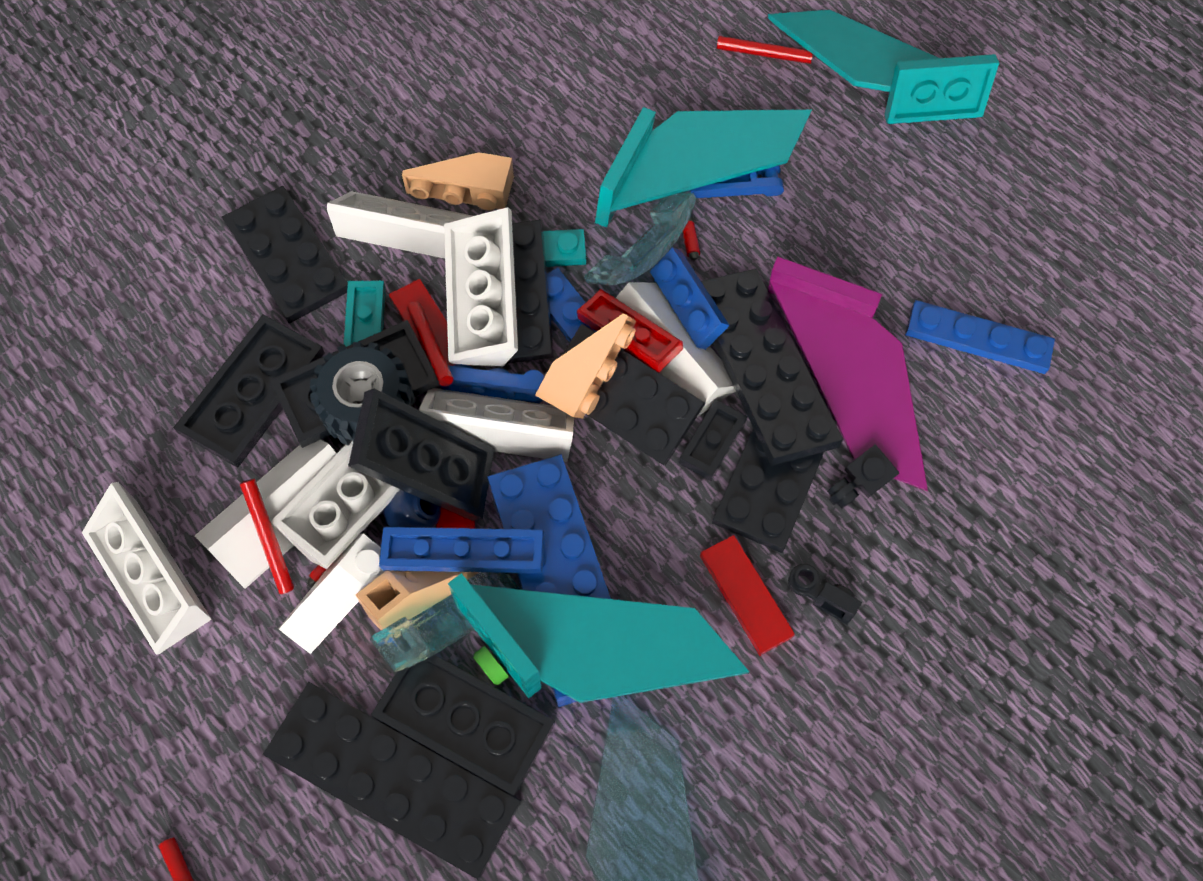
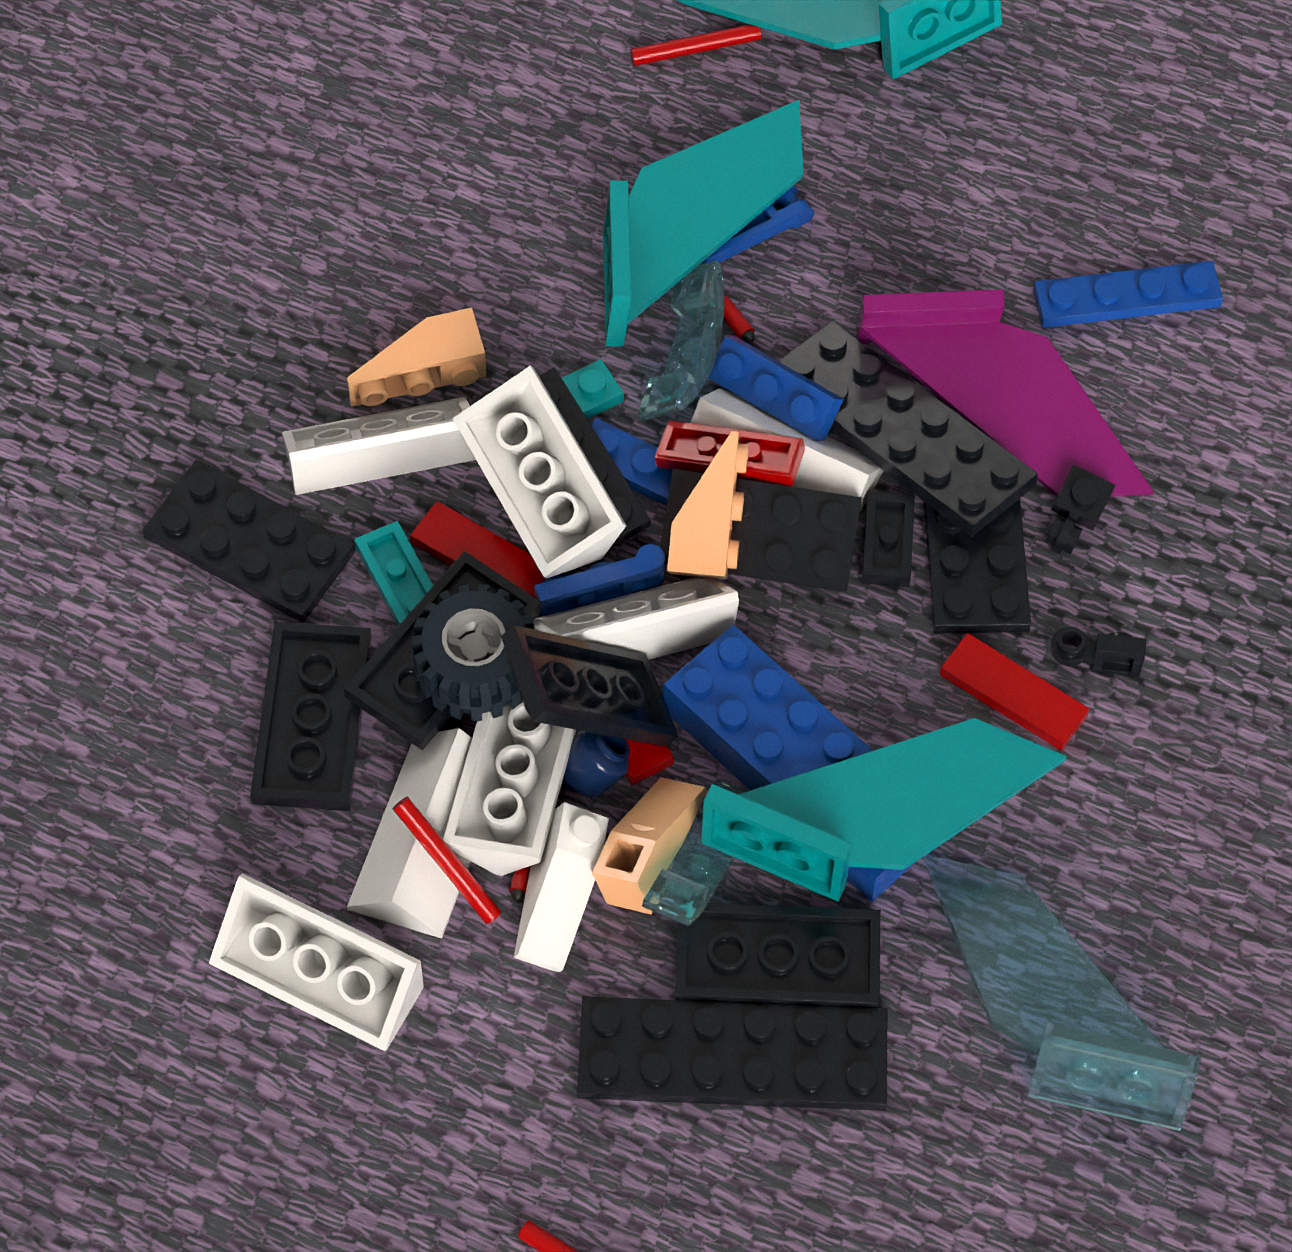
camera: 25 degrees left, 5 degrees down
(430, 344) = (505, 567): red bar -> none
(462, 550) = (688, 769): blue plate -> none
(490, 666) = (776, 887): bright green tile -> none

